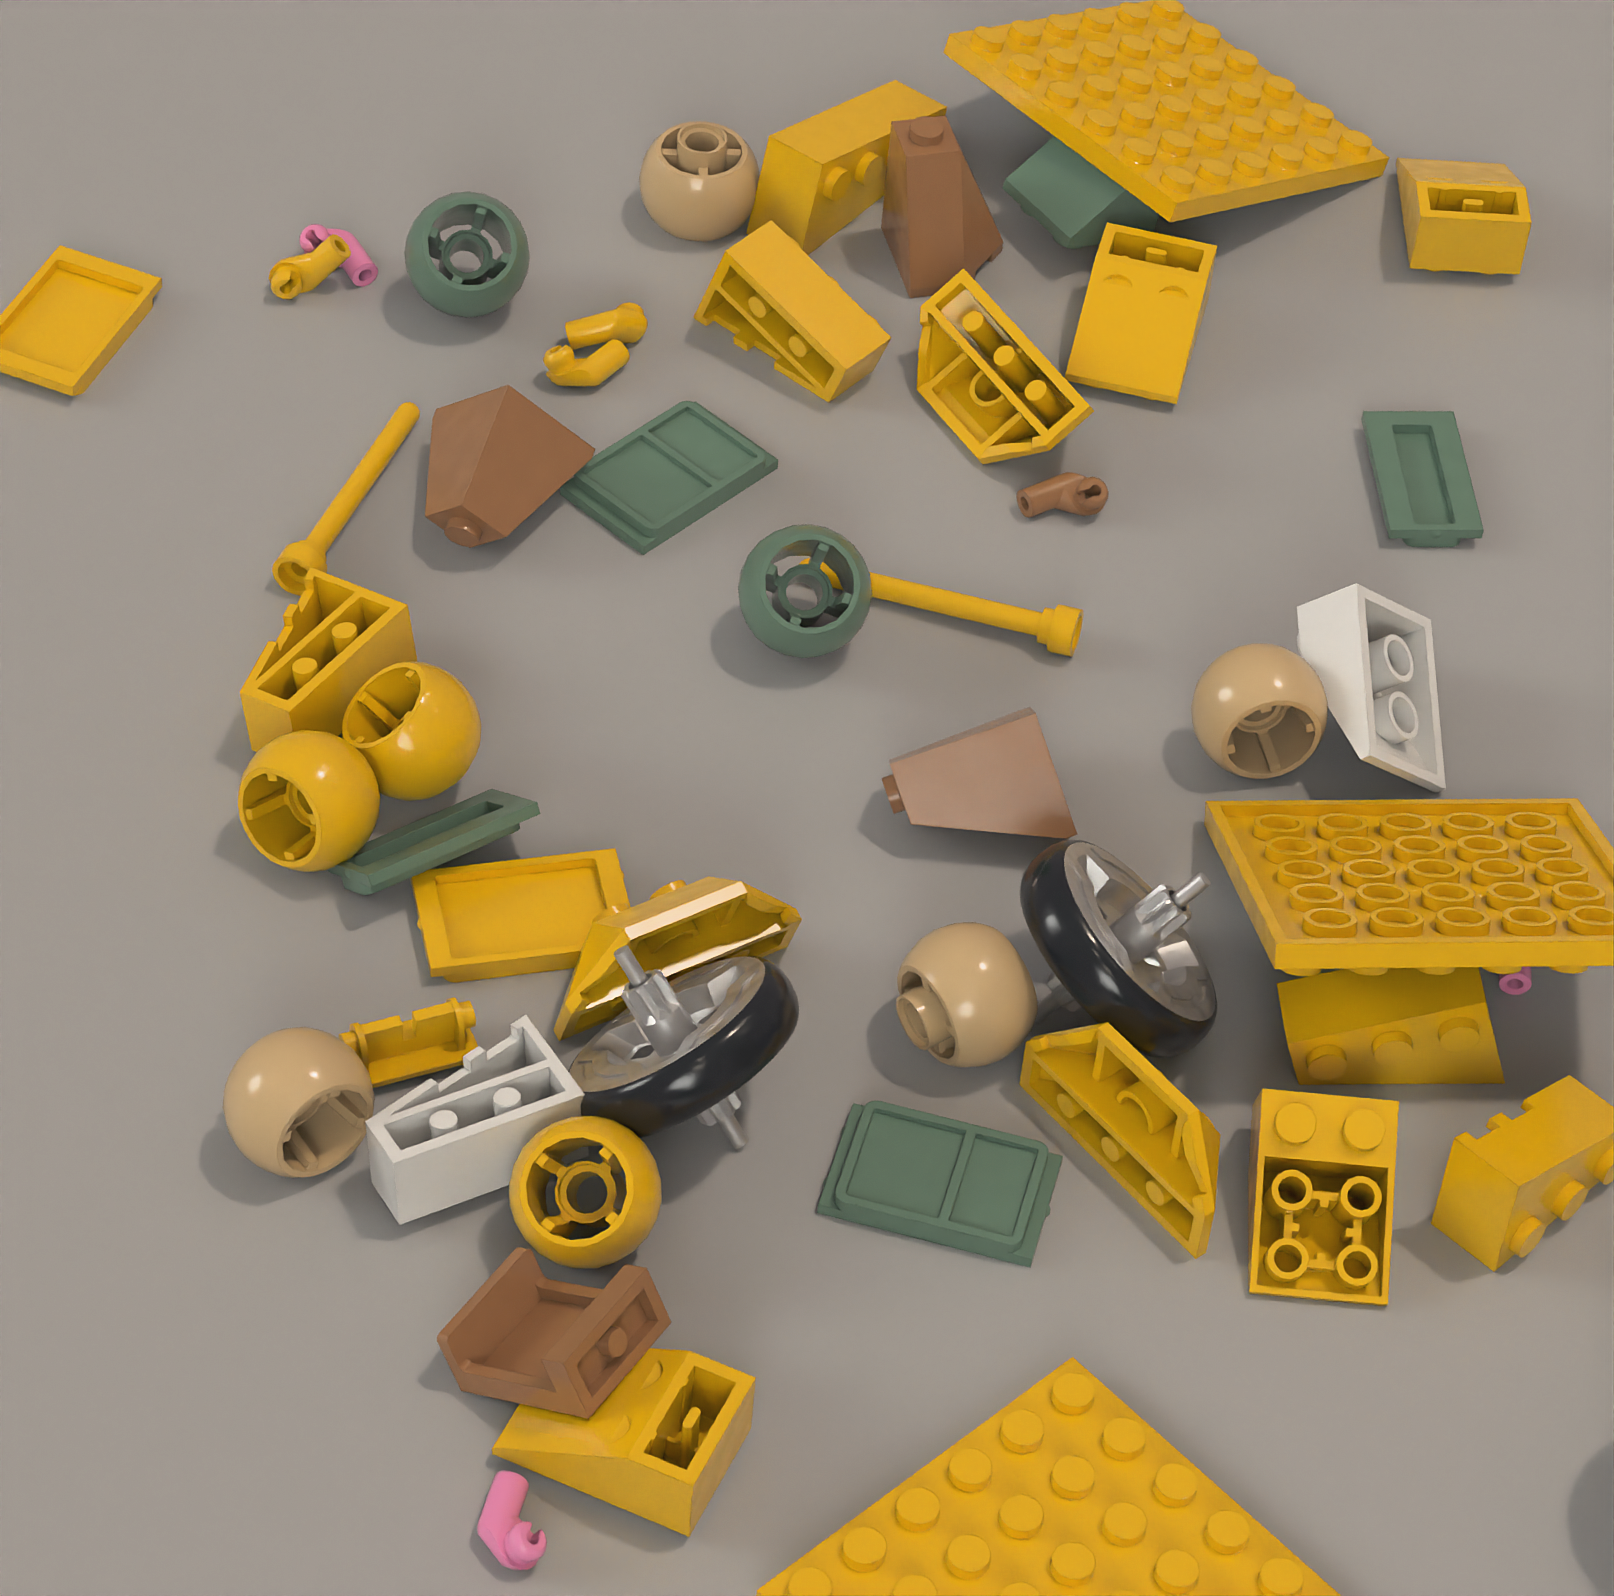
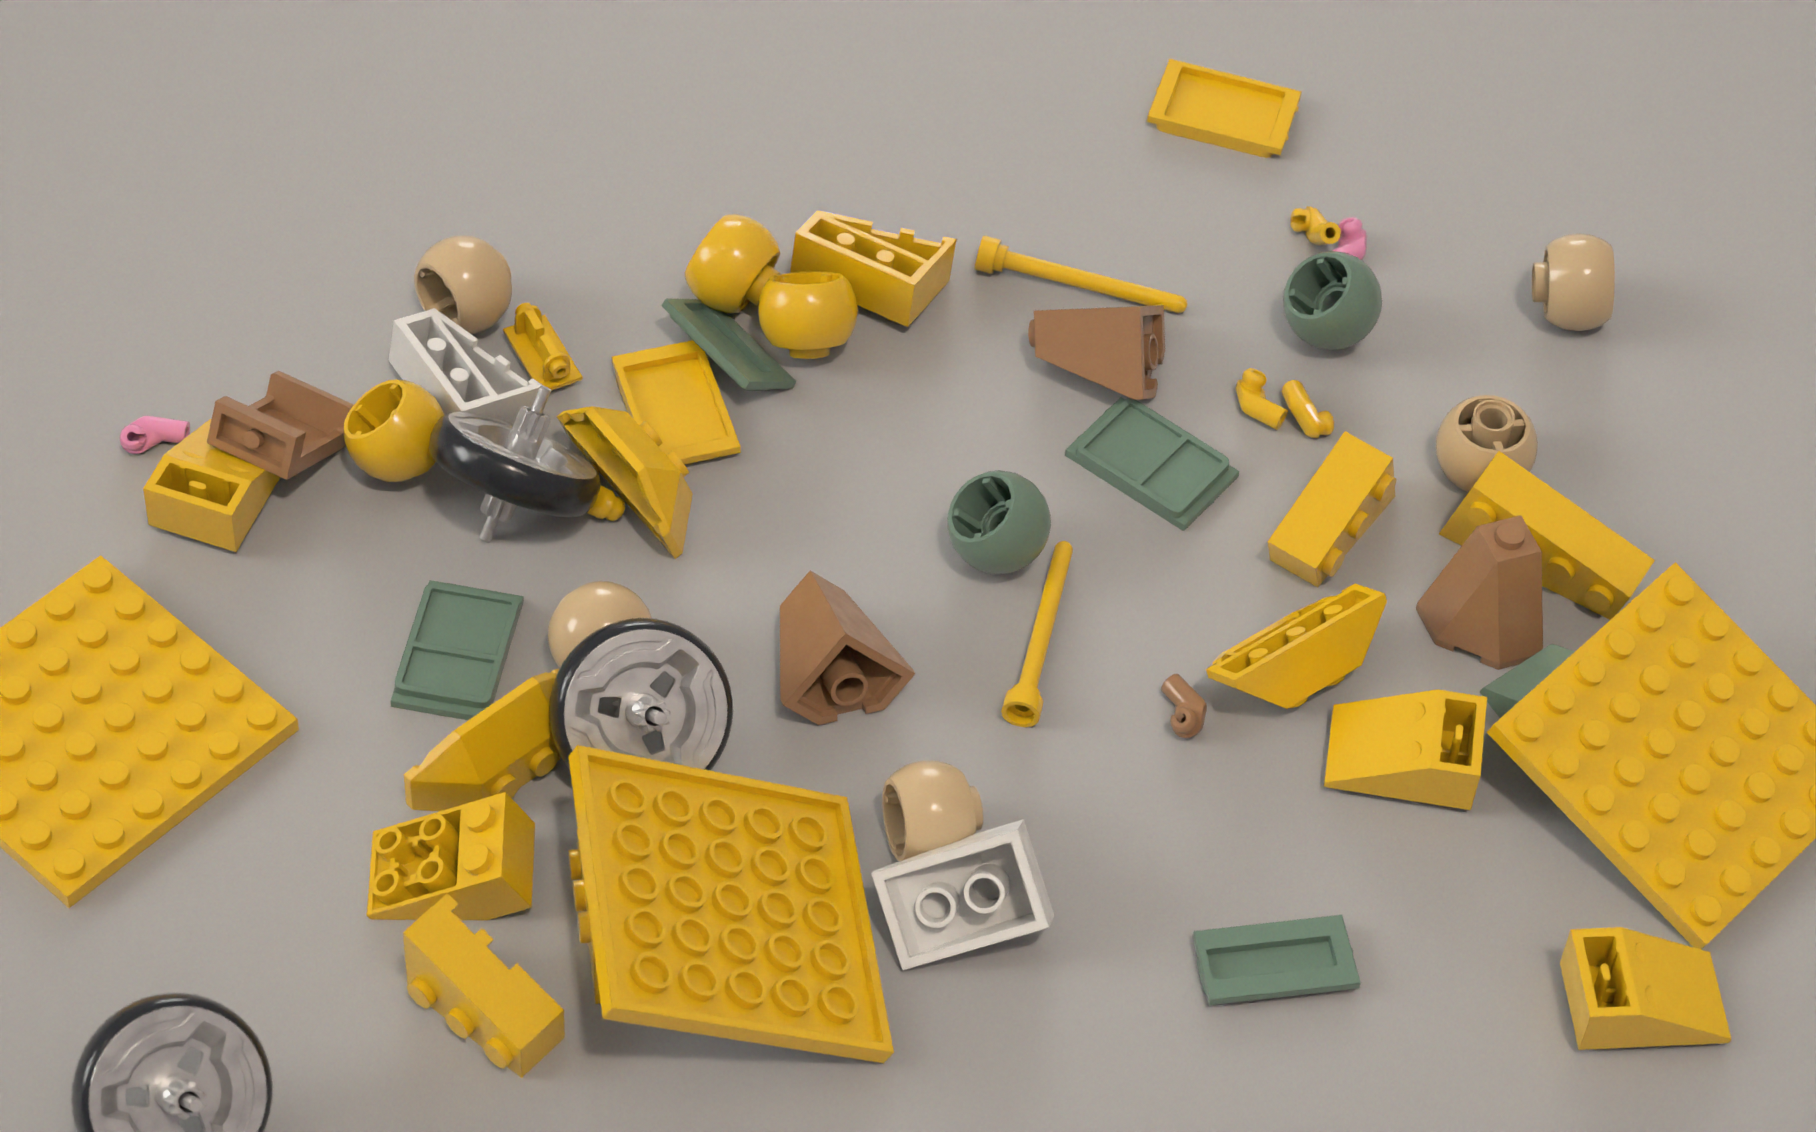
camera: 85 degrees right, 5 degrees up
(461, 60) = (1575, 282): none -> tan wheel

